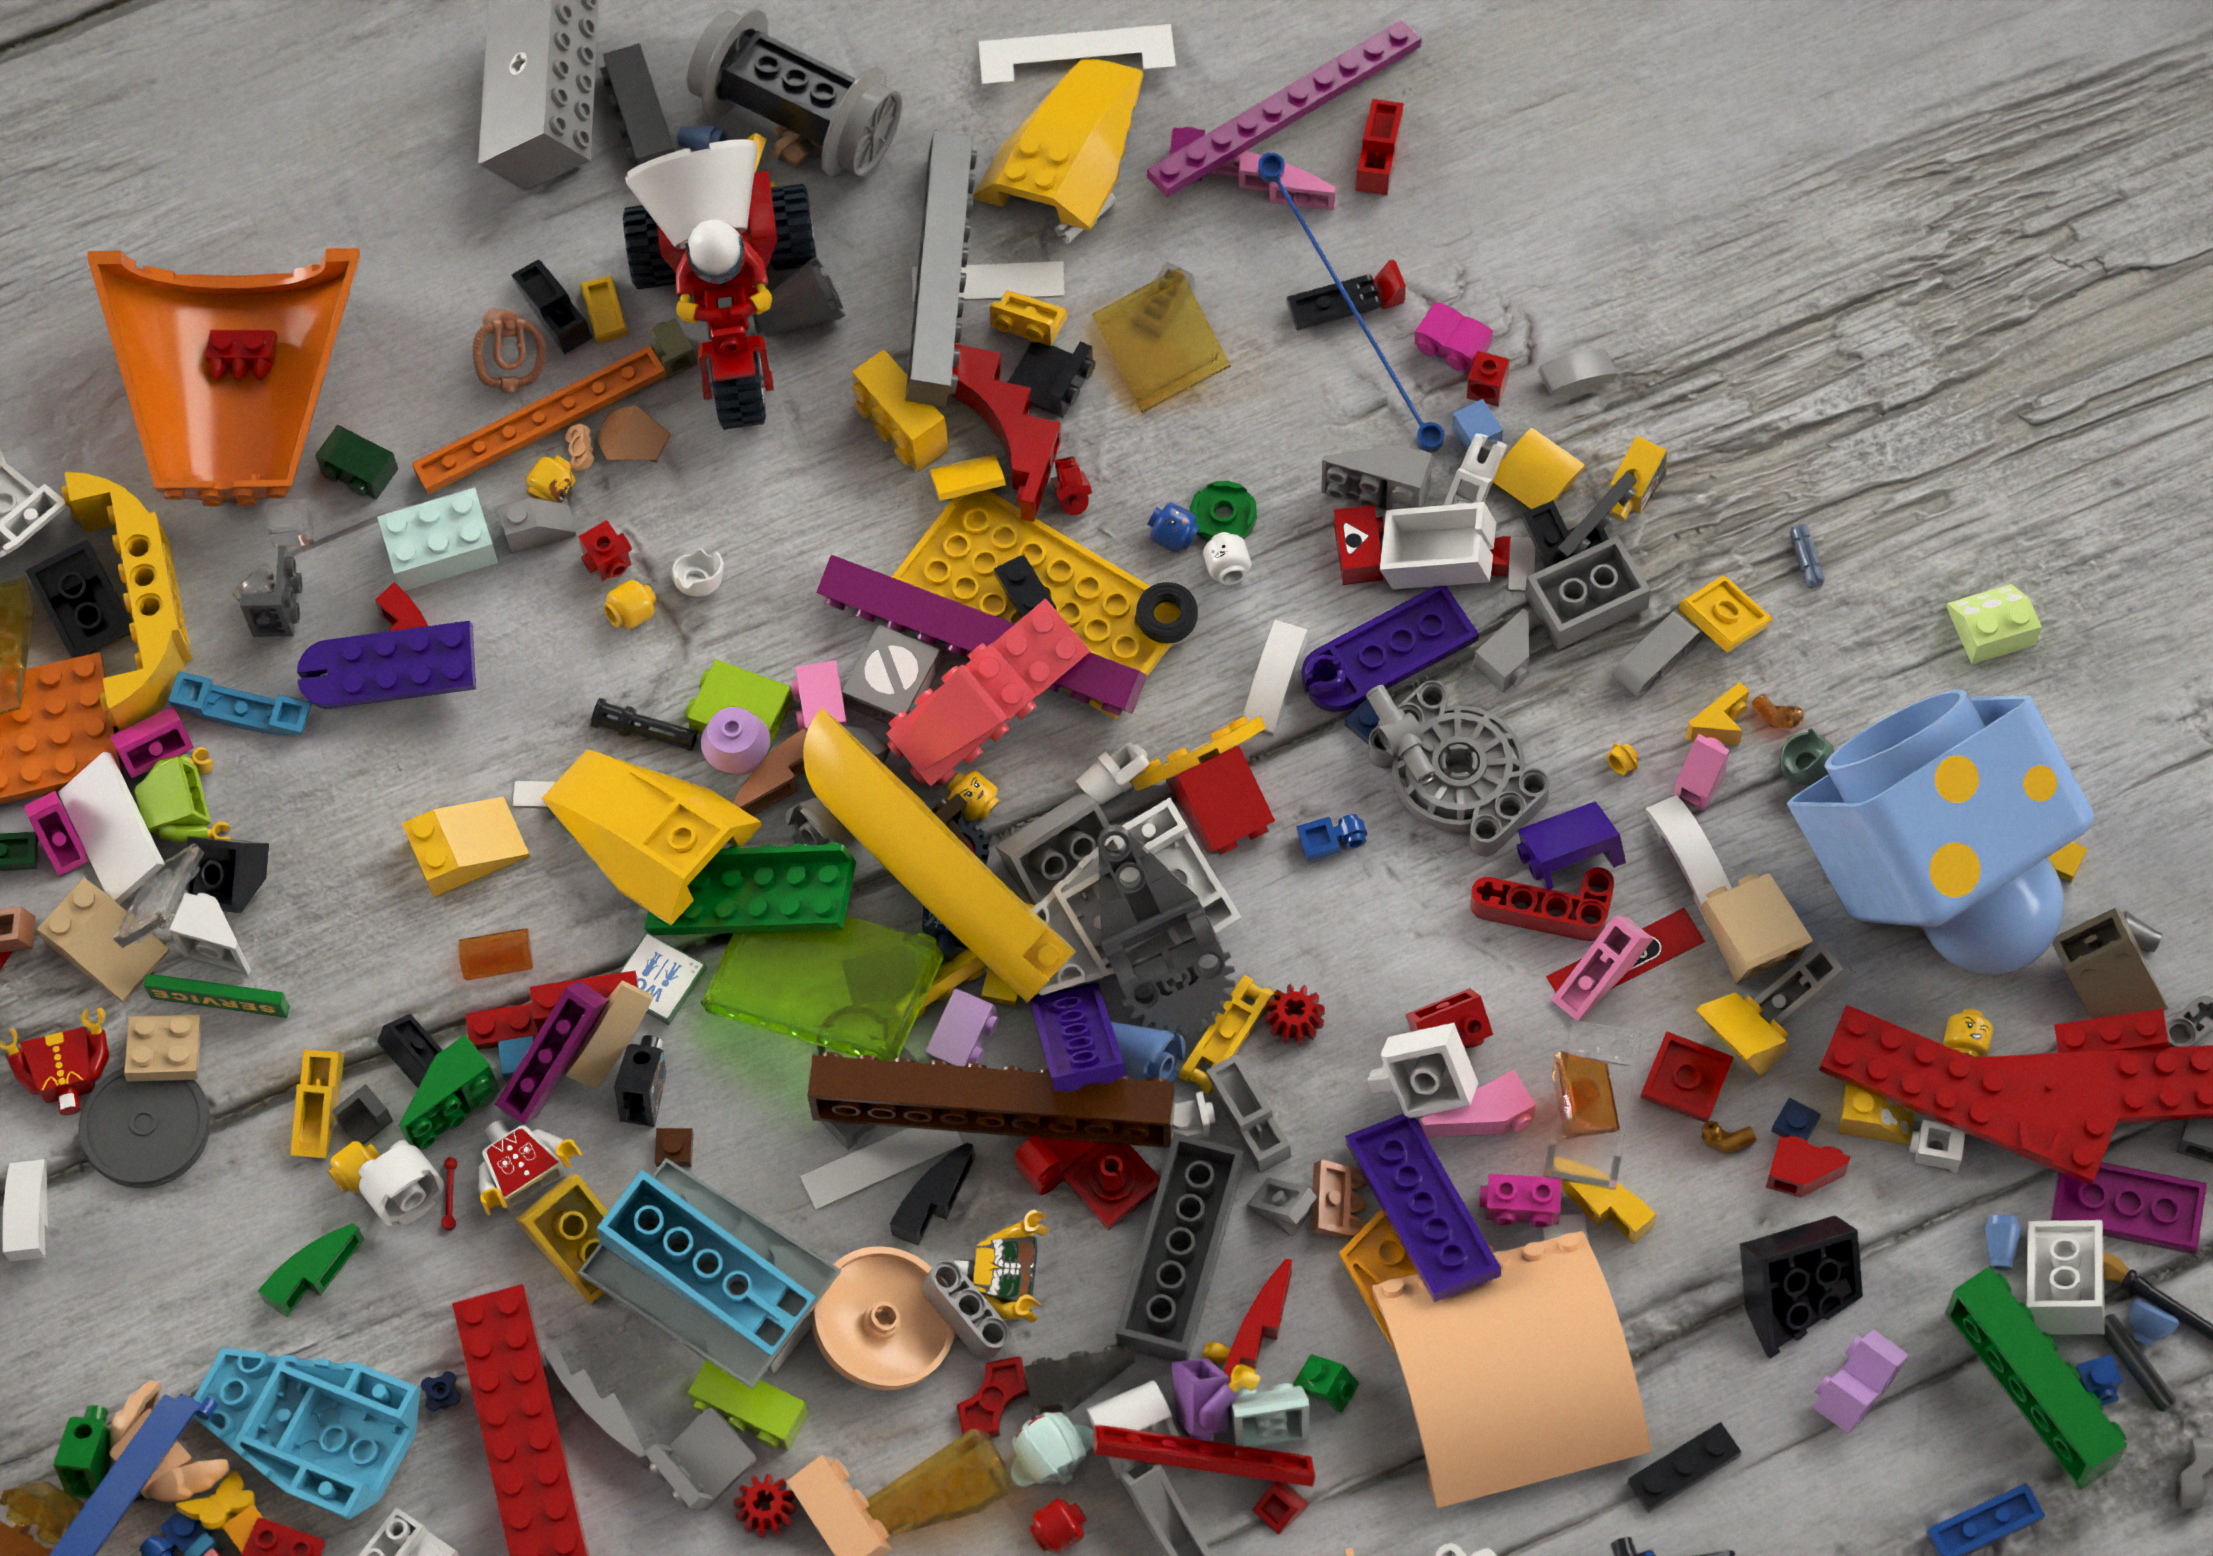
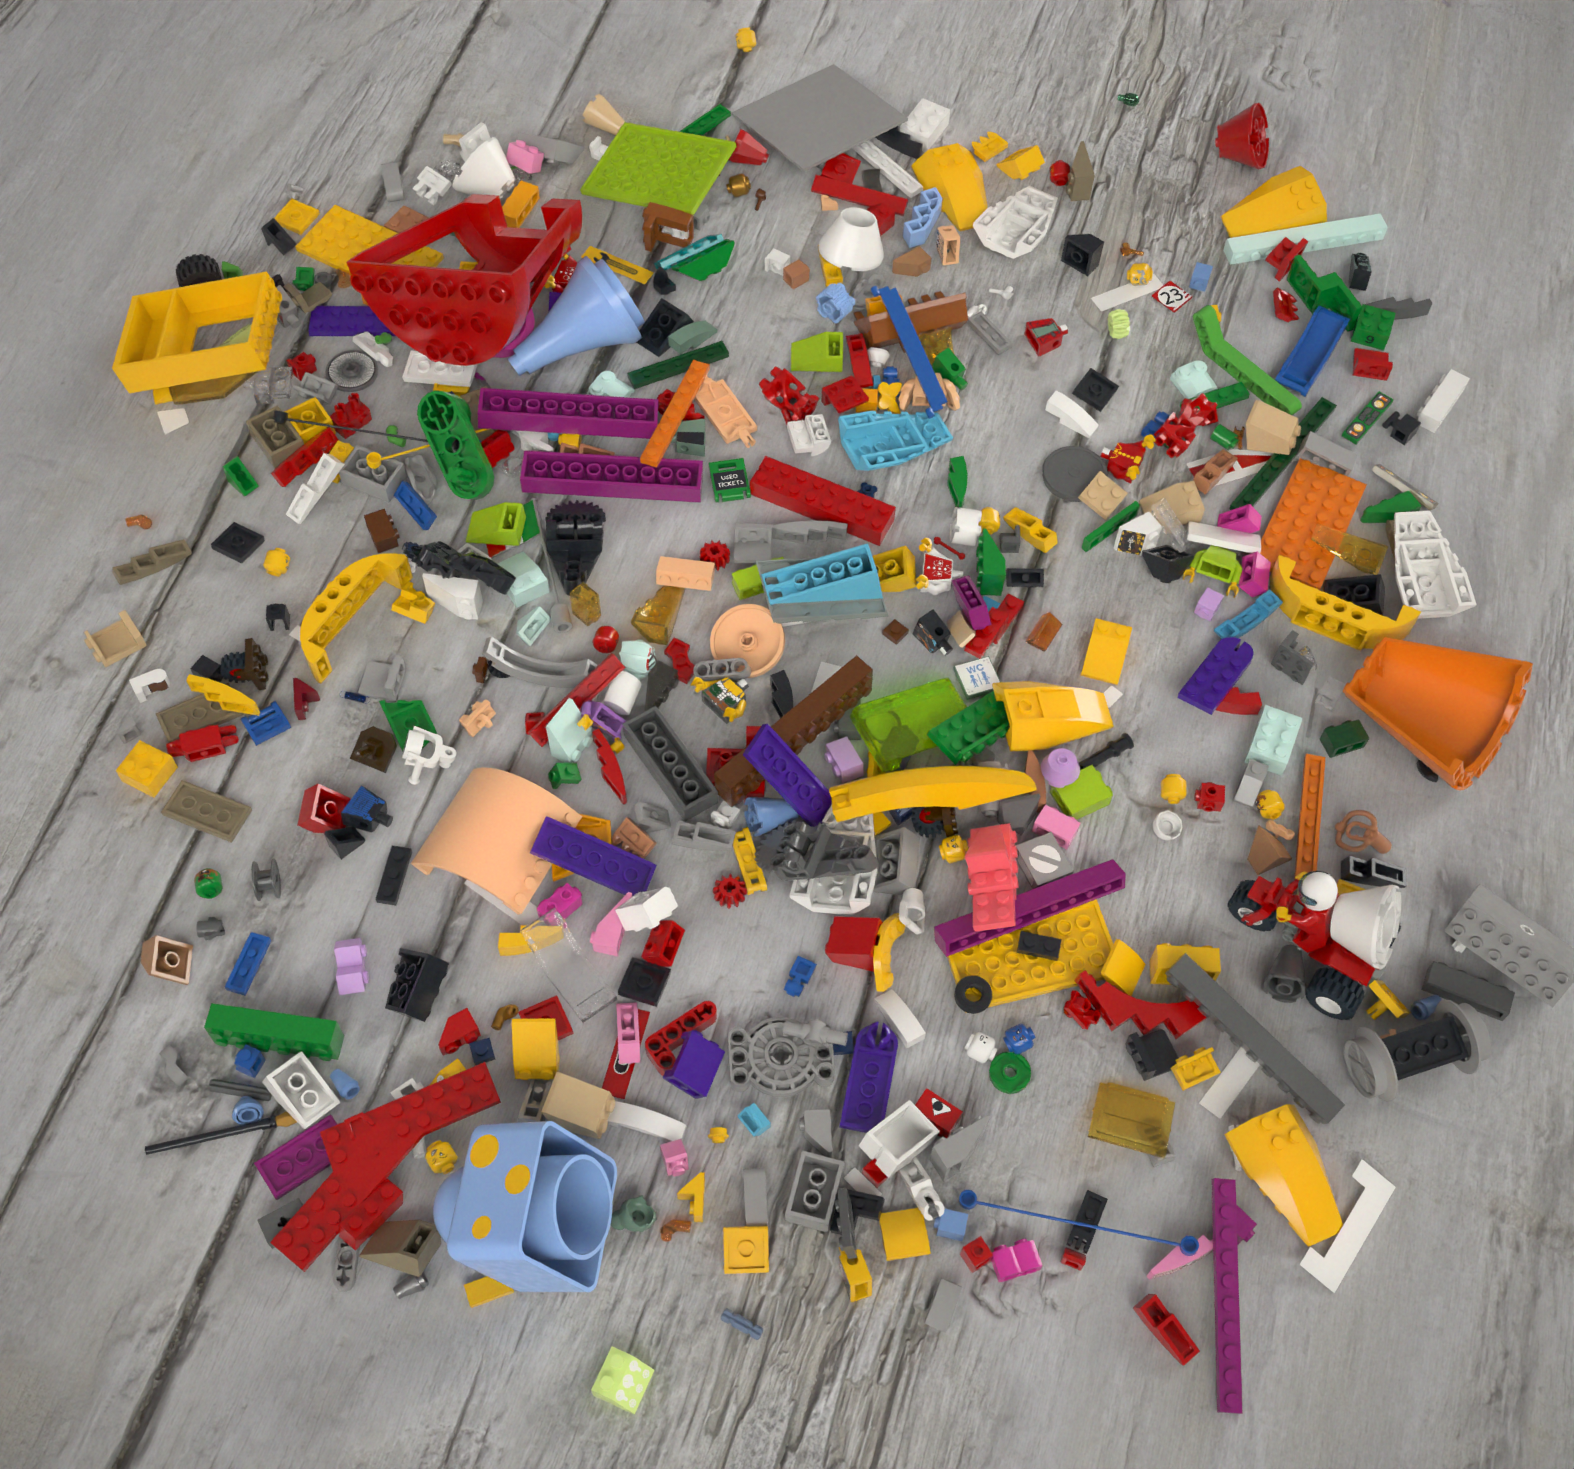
camera: 125 degrees right, 5 degrees down
(240, 351) = (1444, 731): red plate -> none
(259, 770) = (1208, 604): none -> lavender brick
(1520, 1010) = (644, 982): none -> black plate
(1566, 734) = (754, 1120): none -> medium azure piece
(1584, 1096) = (576, 964): clear orange slope -> none

